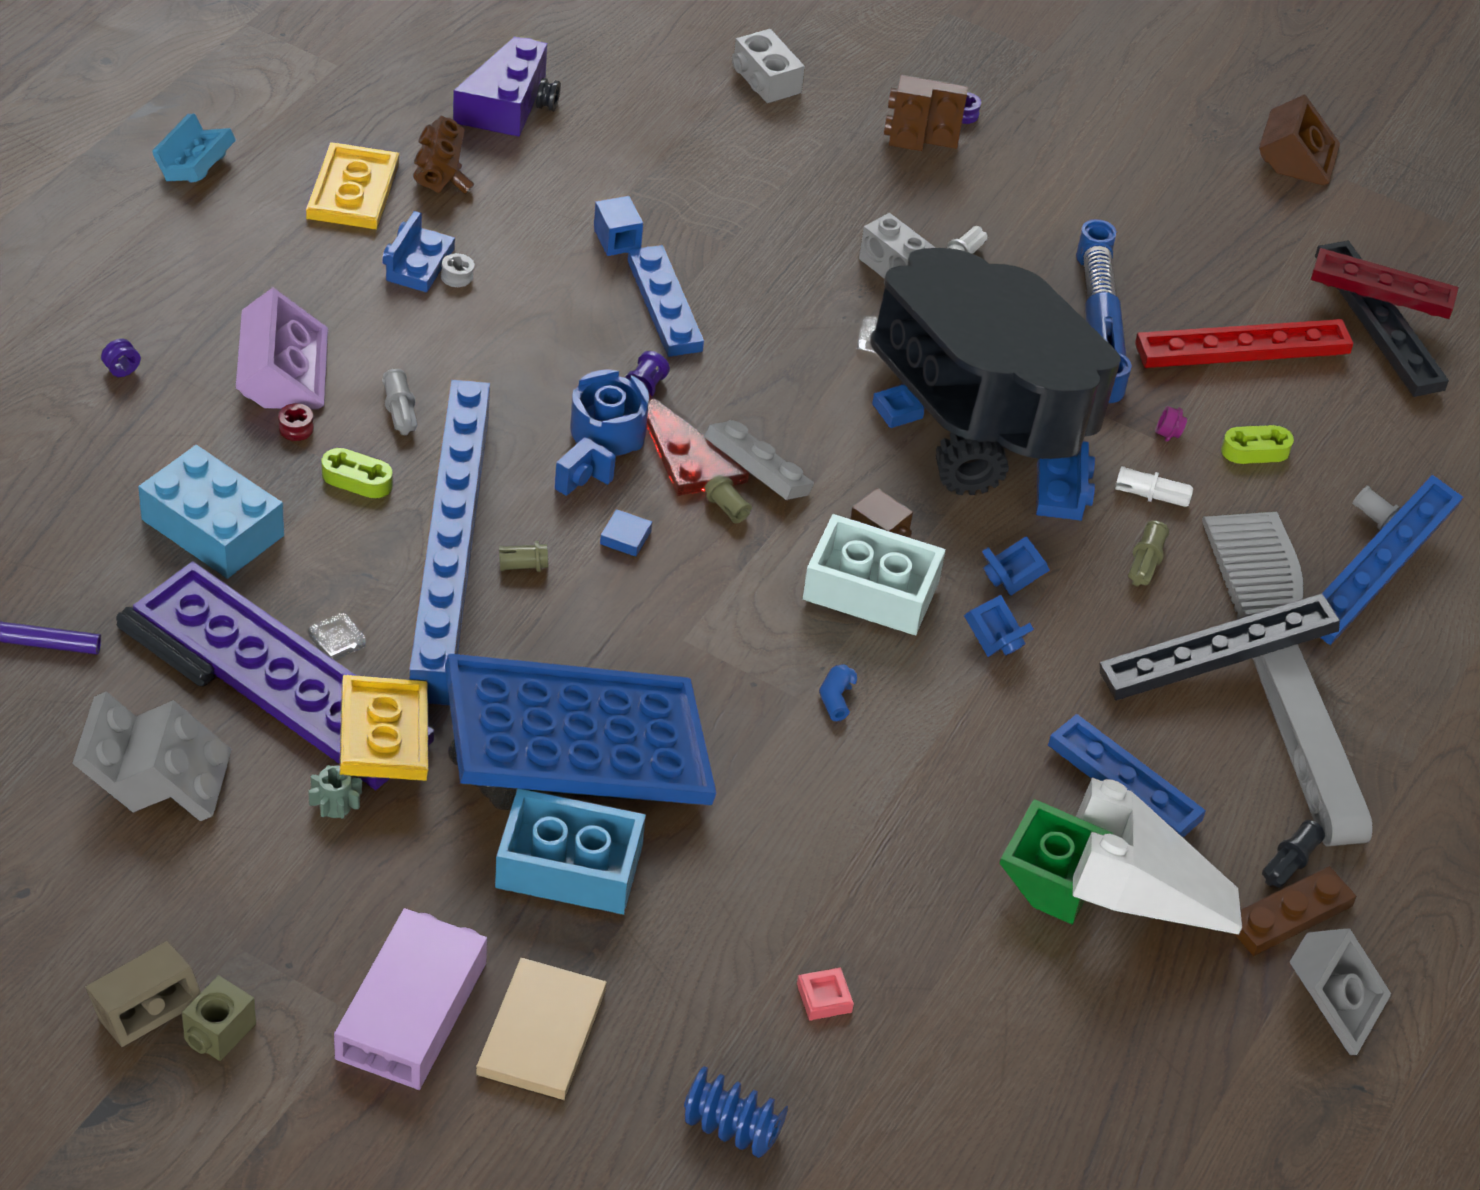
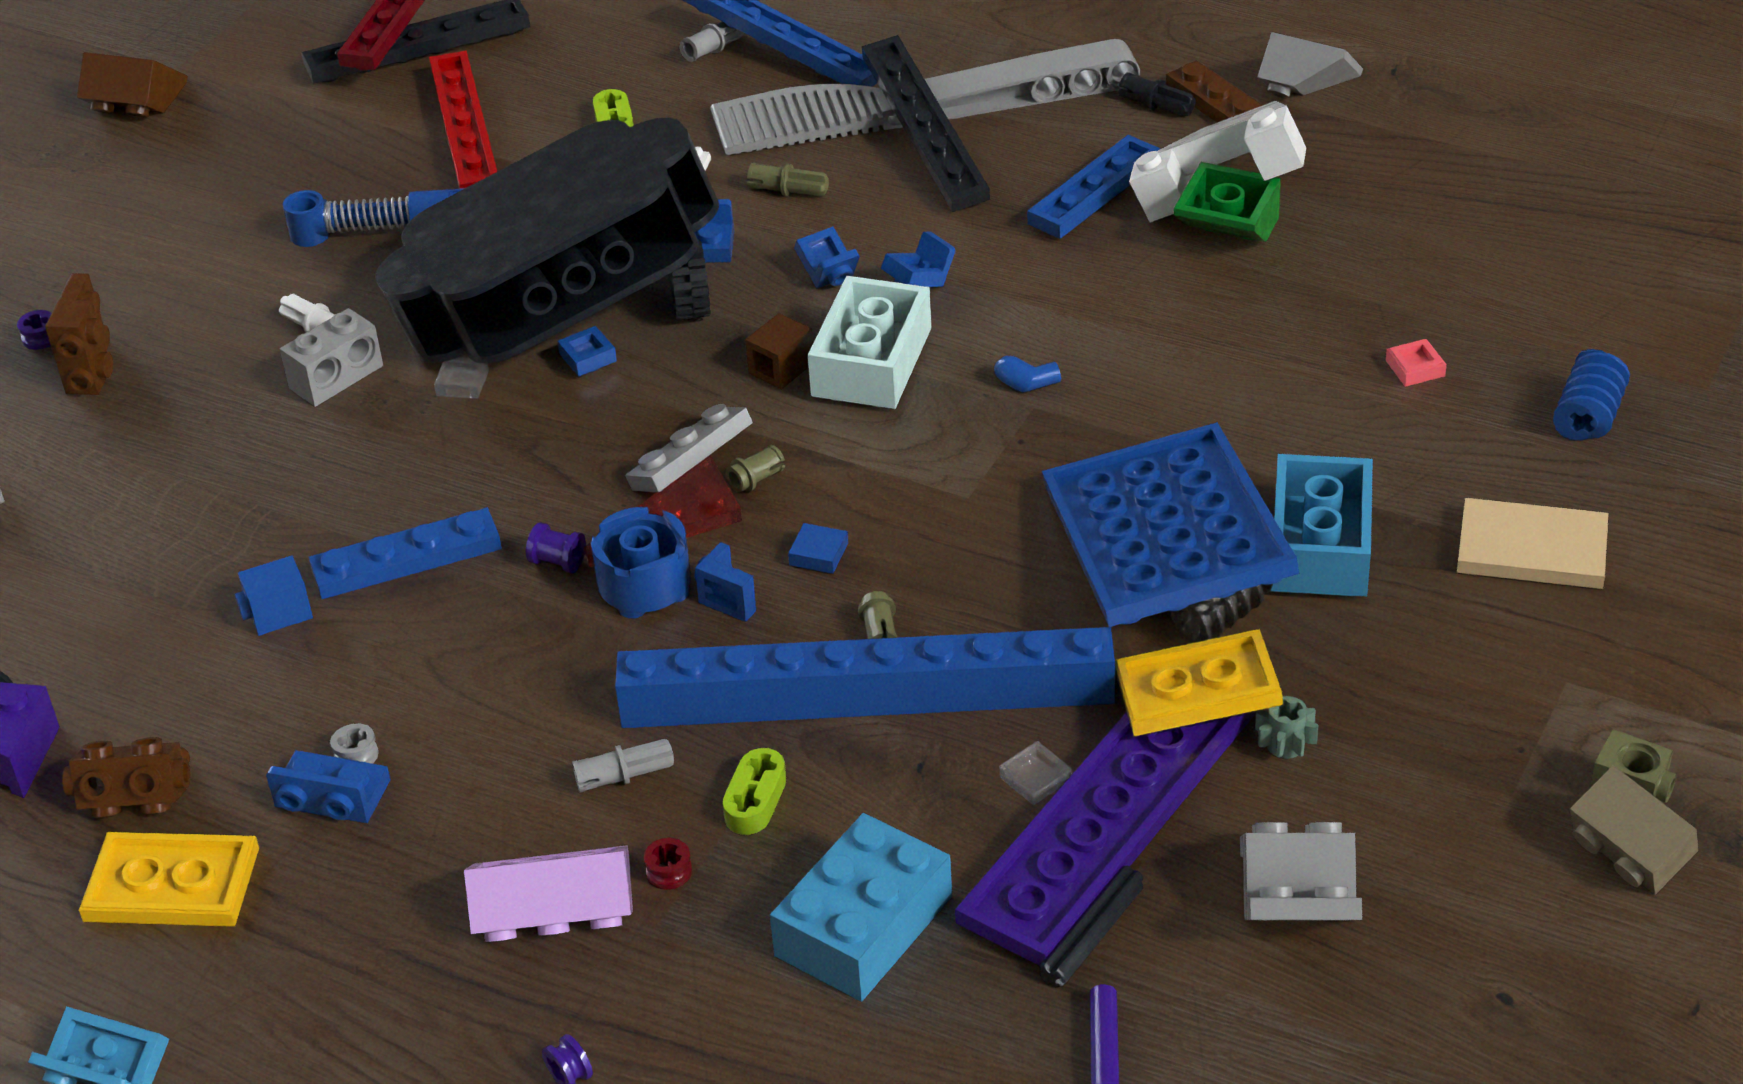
camera: 85 degrees left, 5 degrees down
(411, 998) = (1541, 629): lavender brick -> none

